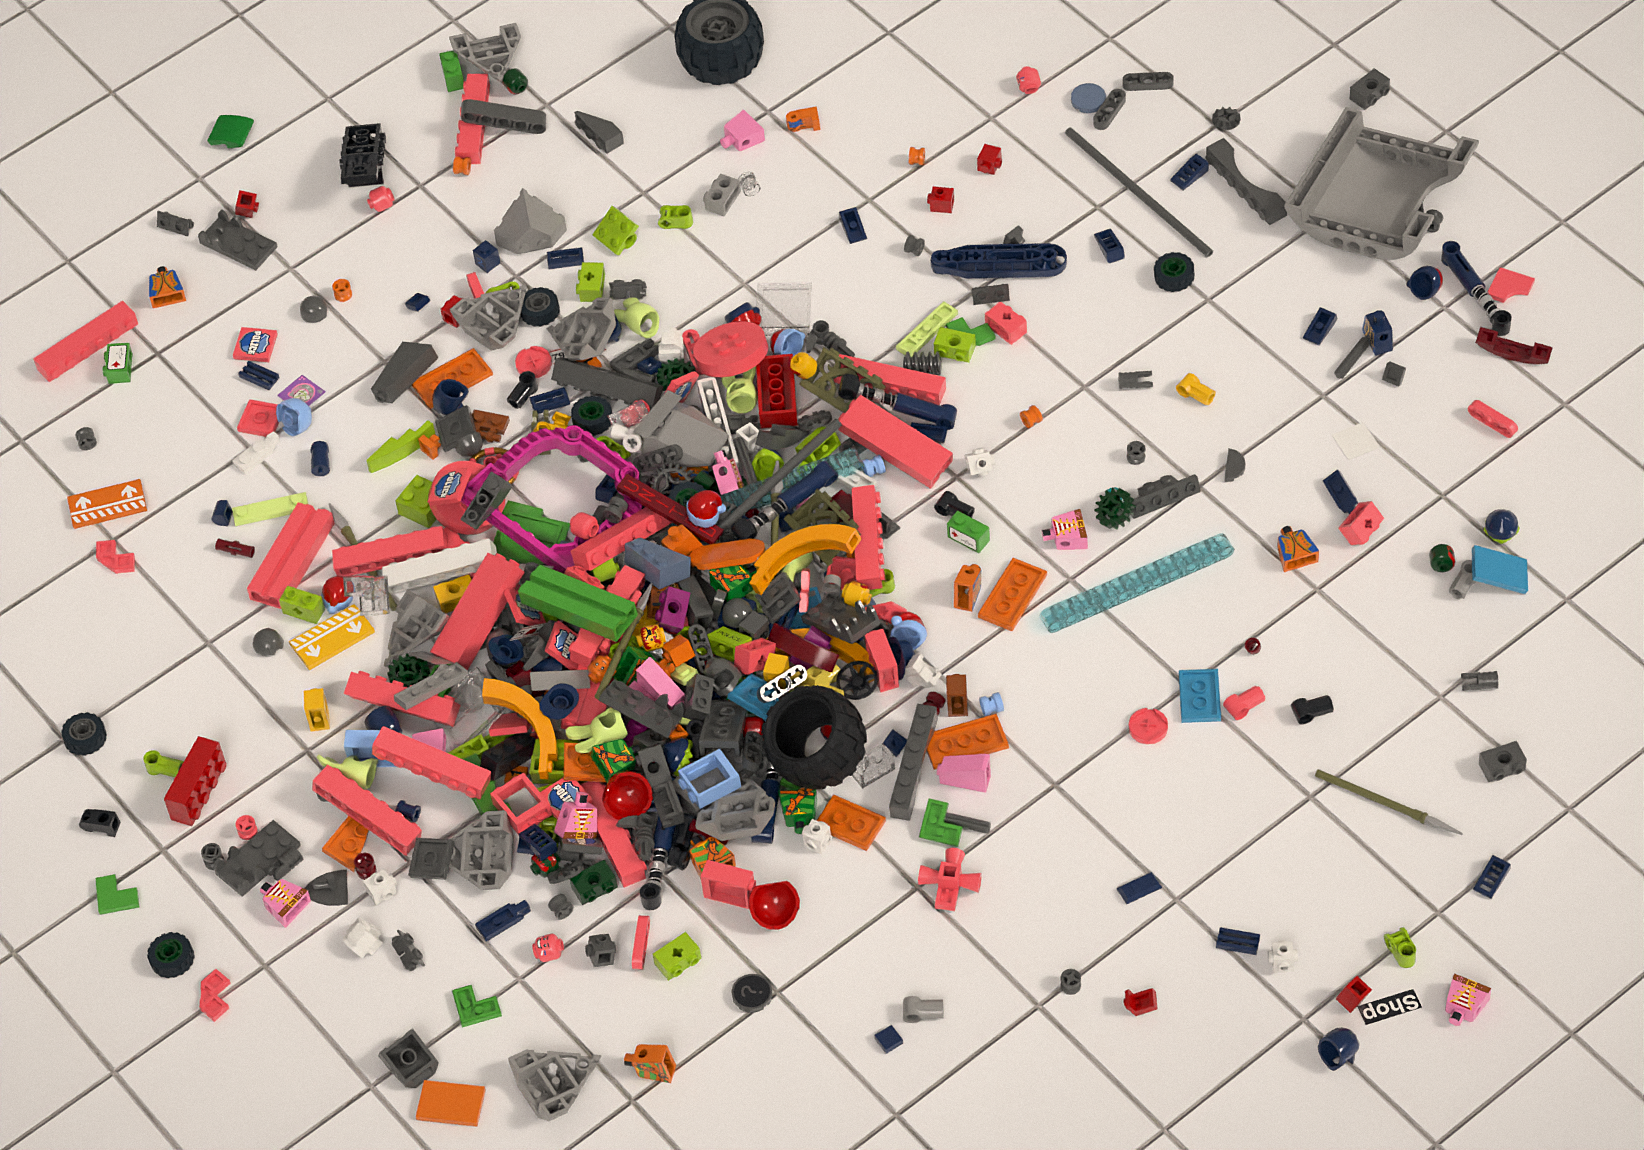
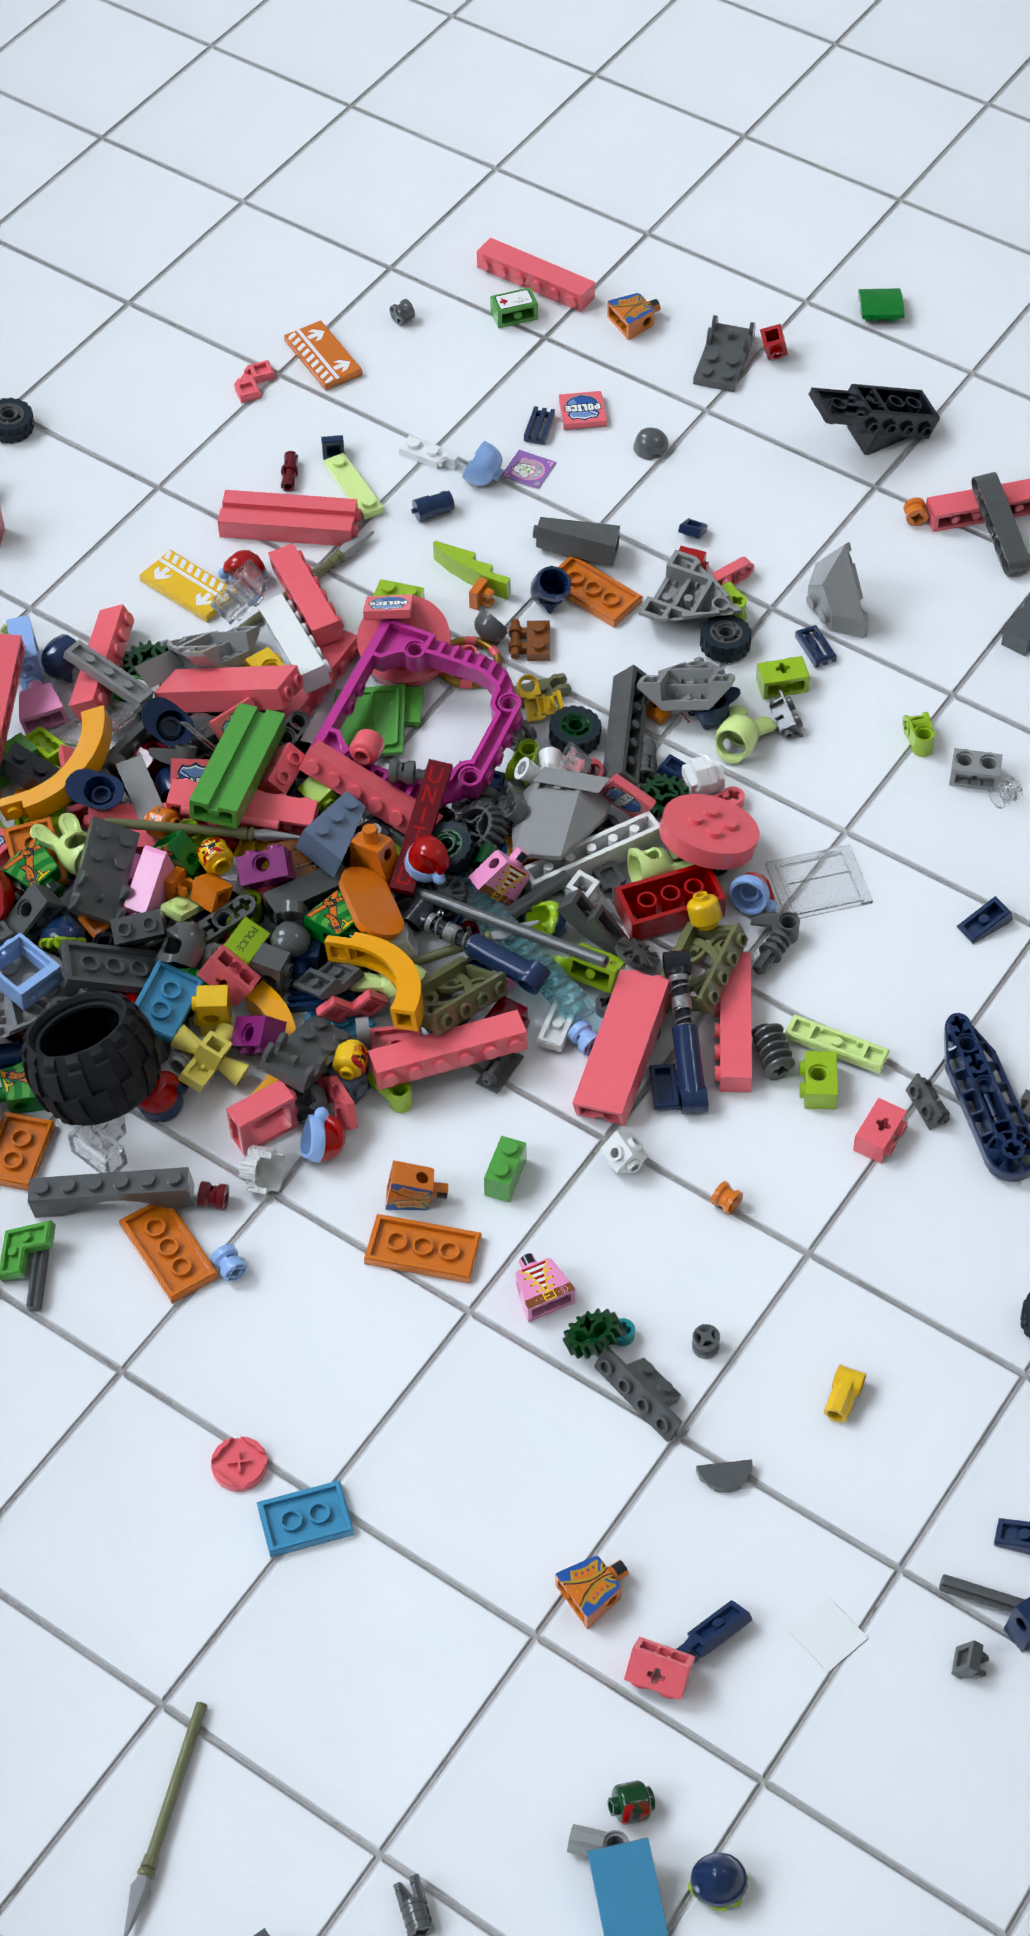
camera: 70 degrees right, 0 degrees up
(174, 223) = (731, 298): dark grey hinge -> none
(258, 418) = (473, 436): coral tile -> none
(267, 642) = (167, 533): dark grey hair -> none
(302, 604) = (219, 543): lime brick -> none
(316, 709) = (71, 592): yellow brick -> none
(342, 290) = (685, 459): orange wheel -> none
(380, 198) = (833, 454): coral head -> none
(455, 427) = (515, 609): dark grey tile -> none
(486, 256) = (782, 569): dark blue brick -> none
(486, 500) = (376, 642): dark grey slope -> none
(526, 387) = (599, 657): black piece -> none
(535, 360) = (645, 655): coral tile -> none
(550, 403) = (585, 689): dark blue tile -> none
(616, 231) = (869, 679): lime plate -> none
(634, 355) = (682, 748): dark grey hinge -> none
(746, 313) = (777, 840): piece -> none
(789, 684) = (191, 1025): beam -> none
(802, 648) = (237, 1041): dark red slope -> none
(858, 682) = (222, 1099): black wheel -> none
(895, 742) = (146, 1162): dark blue tile -> none
(902, 653) = (285, 1139): dark blue piece -> none
(914, 245) = (974, 994): dark grey wheel -> none
(949, 504) = (546, 1139): black piece -> none
(957, 695) = (225, 1214): dark orange brick -> none
(966, 771) = (108, 1258): bright pink slope -> none
(982, 333) = (849, 1104): bright green tile -> none
(1130, 379) = (835, 1308): dark grey hinge -> none
(1136, 583) = (479, 1396): clear light blue beam -> none
(1240, 704) = (295, 1572): coral piece -> none
(1250, 644) = (405, 1564): dark red hinge -> none
(1307, 710) = (306, 1667): black piece -> none
(1492, 418) = (929, 1827): coral beam -> none

